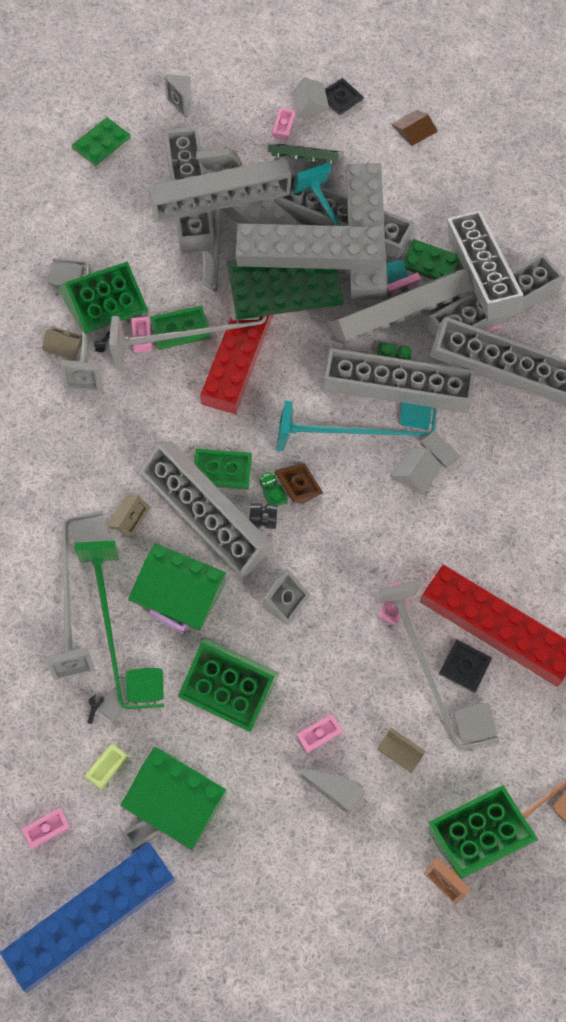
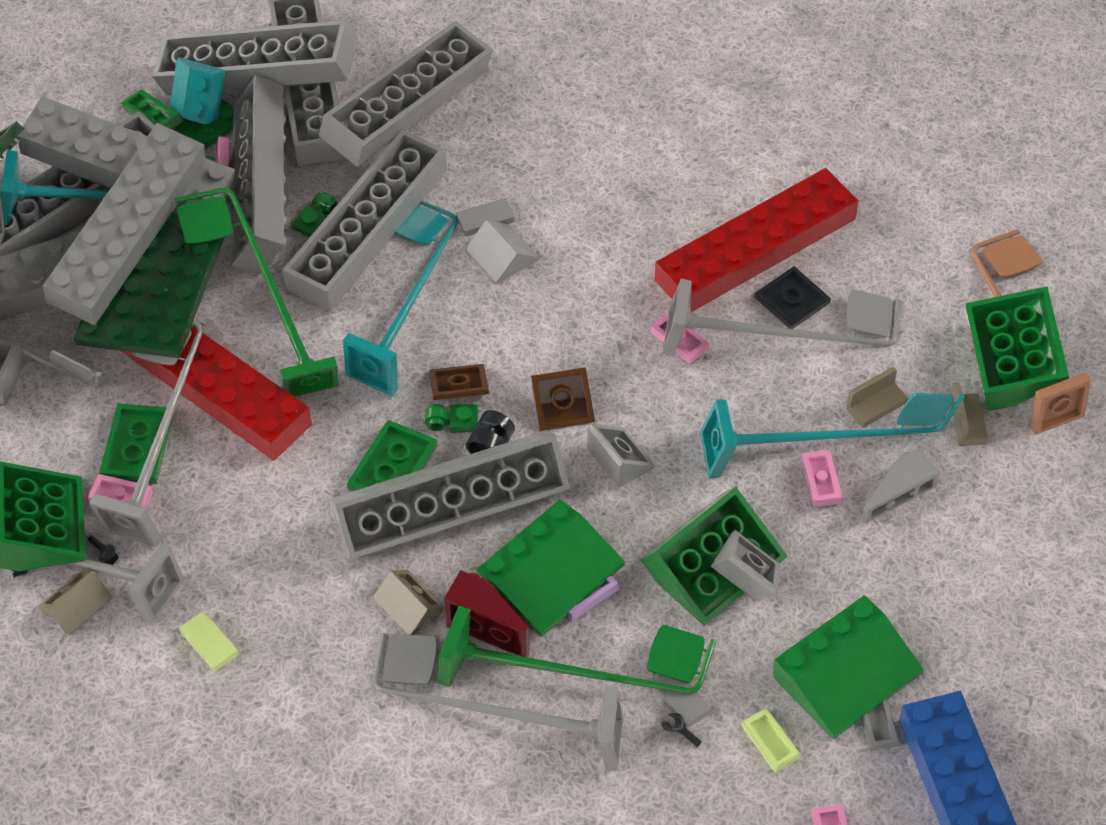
camera: 65 degrees left, 10 degrees down
(62, 420) = (209, 641): none -> yellowish green tile
(128, 559) = (490, 614): none -> dark red slope
(224, 707) = (747, 567): none -> light grey slope
(312, 548) = (562, 398): none -> reddish brown slope
(317, 658) = (720, 439): none -> teal piece
(333, 289) = (210, 220): none -> green piece
(413, 819) = (969, 419): none -> dark tan panel
(423, 231) = (152, 109): none -> green plate
(443, 247) = (197, 91): none -> teal slope

